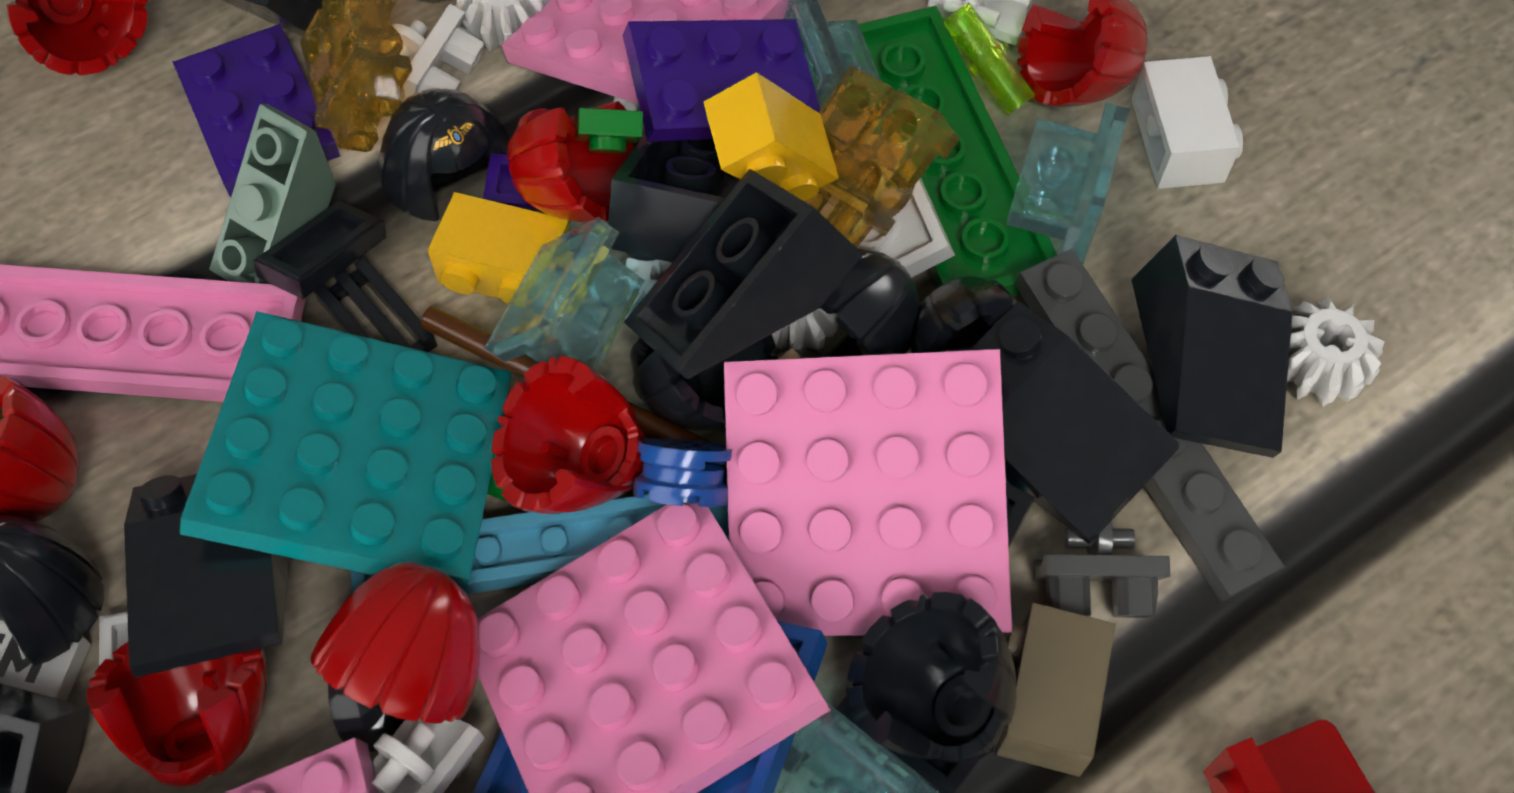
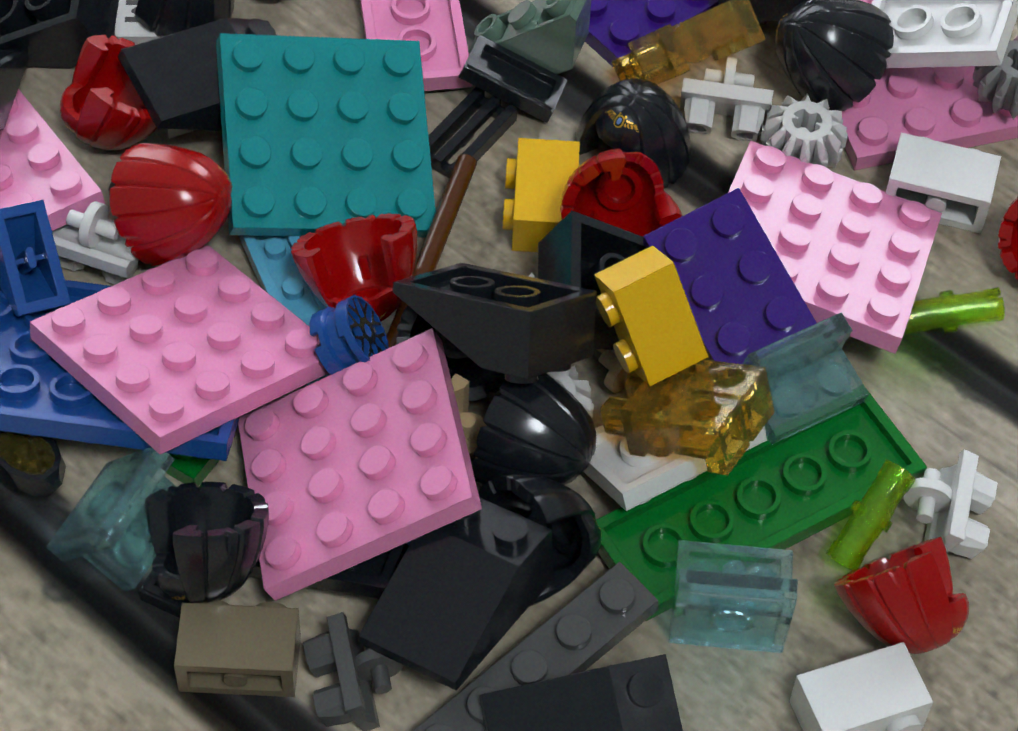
camera: 75 degrees right, 5 degrees down
(568, 300) = (473, 232): clear light blue bracket -> none
(608, 129) = (637, 204): green plate -> none

